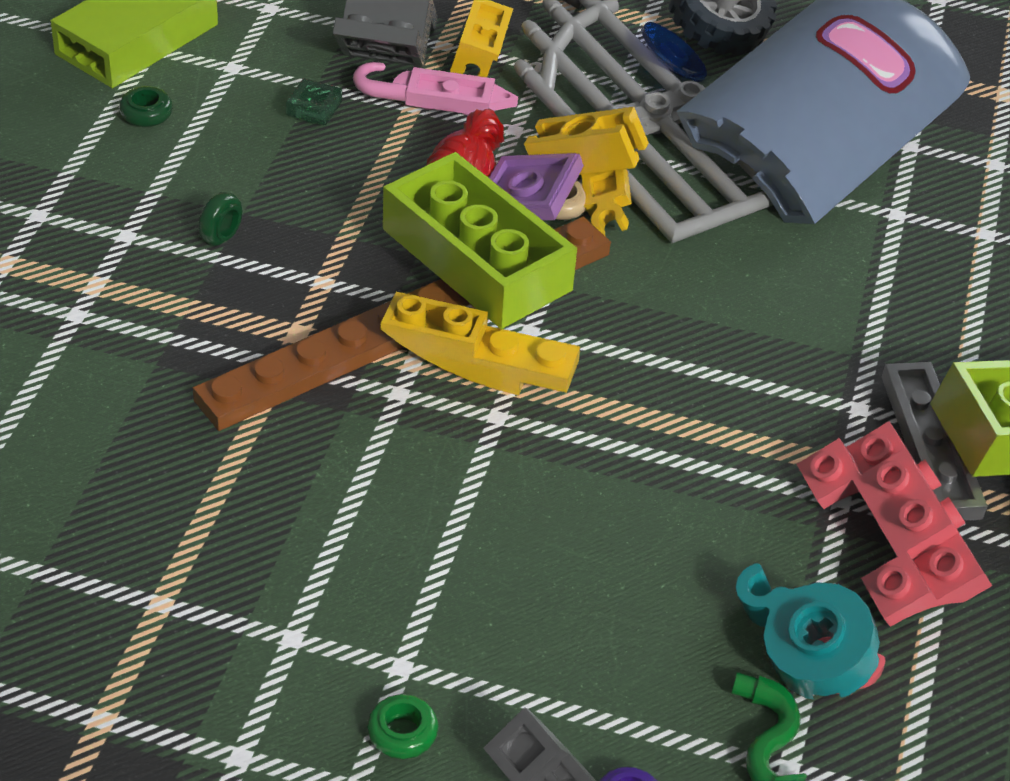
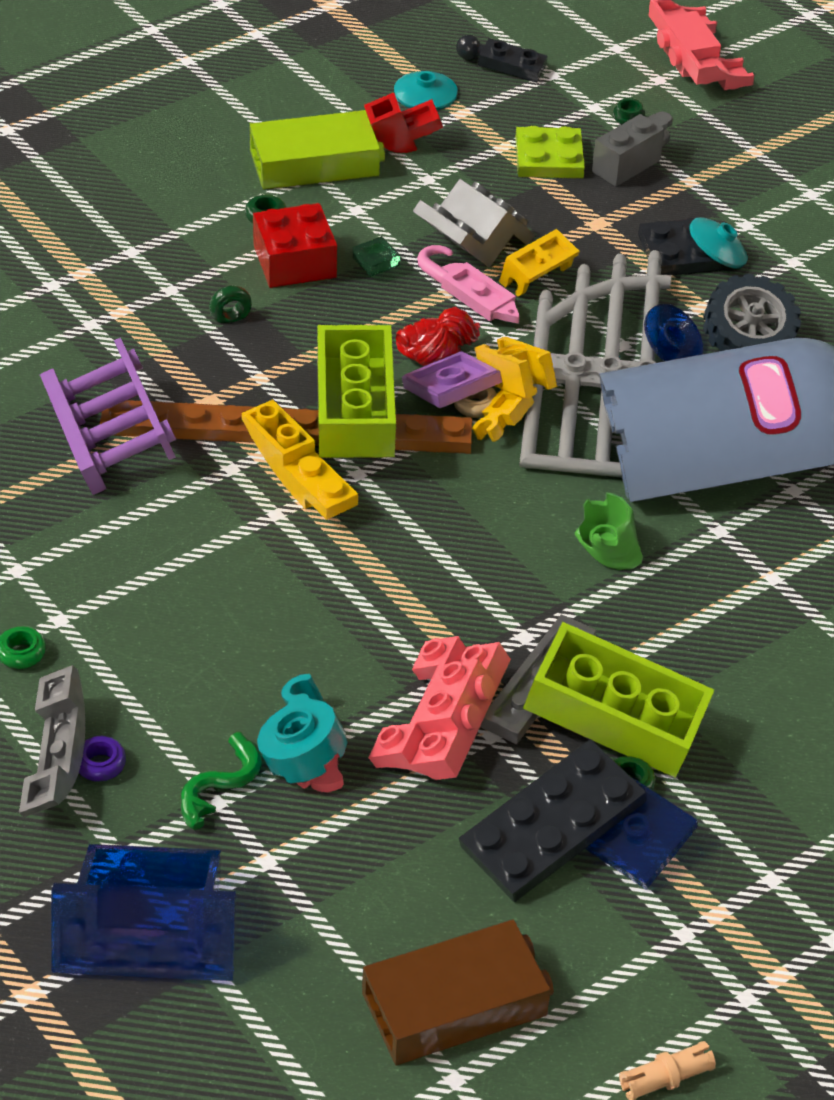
camera: 40 degrees right, 0 degrees up
(224, 125) = (294, 245): none -> red brick
(225, 446) = (83, 440): none -> medium lavender fence
(833, 259) = (610, 533): none -> bright green hair

